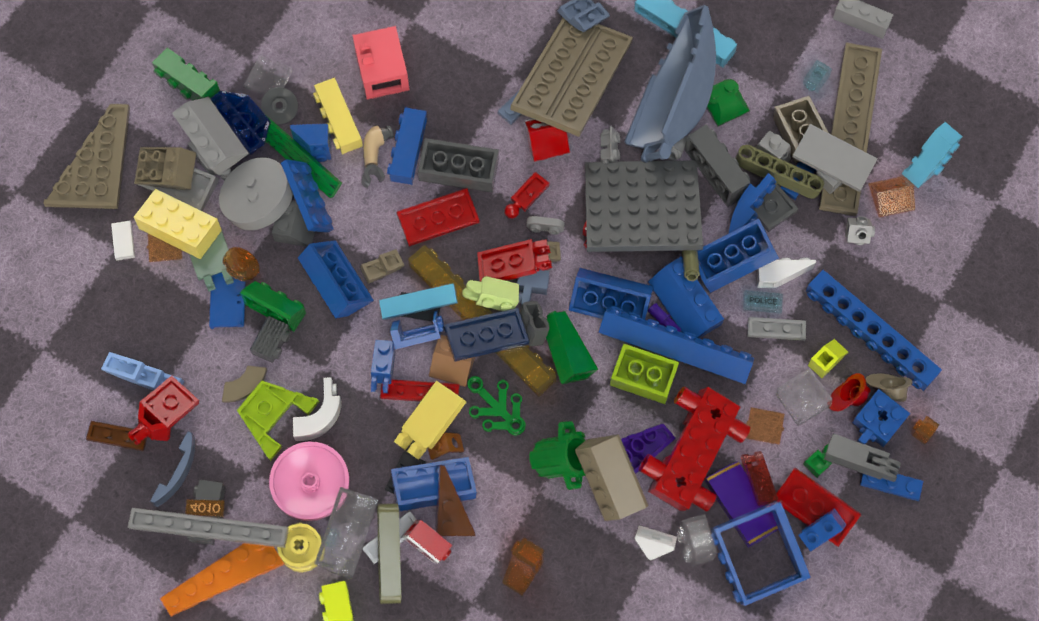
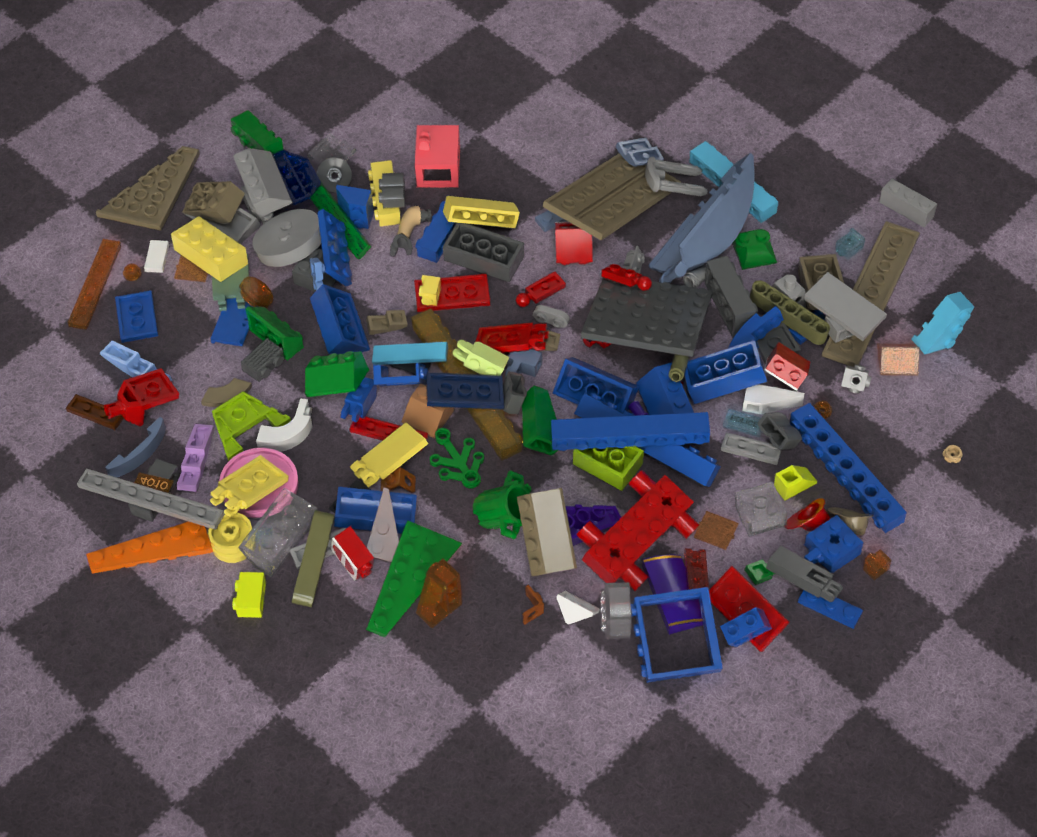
camera: 15 degrees right, 15 degrees down
(69, 288) = (94, 284): none -> clear orange plate
(103, 260) = (132, 272): none -> clear orange plate
(124, 315) = (136, 316): none -> blue tile
(235, 465) = (195, 458): none -> lavender slope
(299, 231) = (317, 271): none -> medium blue plate
(303, 491) = (248, 485): none -> light yellow tile
(348, 116) = (392, 190): none -> dark grey brick
(351, 345) = (335, 373): none -> green slope
(417, 223) = (430, 290): none -> light yellow brick
(444, 122) = (481, 212): none -> light yellow brick
(488, 535) = (407, 573): none -> green wing
(609, 40) = (655, 176): none -> light grey piece
(610, 166) = (626, 277): none -> red plate
(616, 544) = (538, 604): none -> dark orange bracket
(662, 347) = (630, 431): none -> blue brick
(793, 234) = (787, 366): none -> piece
(800, 305) = (779, 430): none -> dark grey brick
(838, 267) = (823, 405): none -> clear orange plate
(971, 289) = (956, 451): none -> tan plate

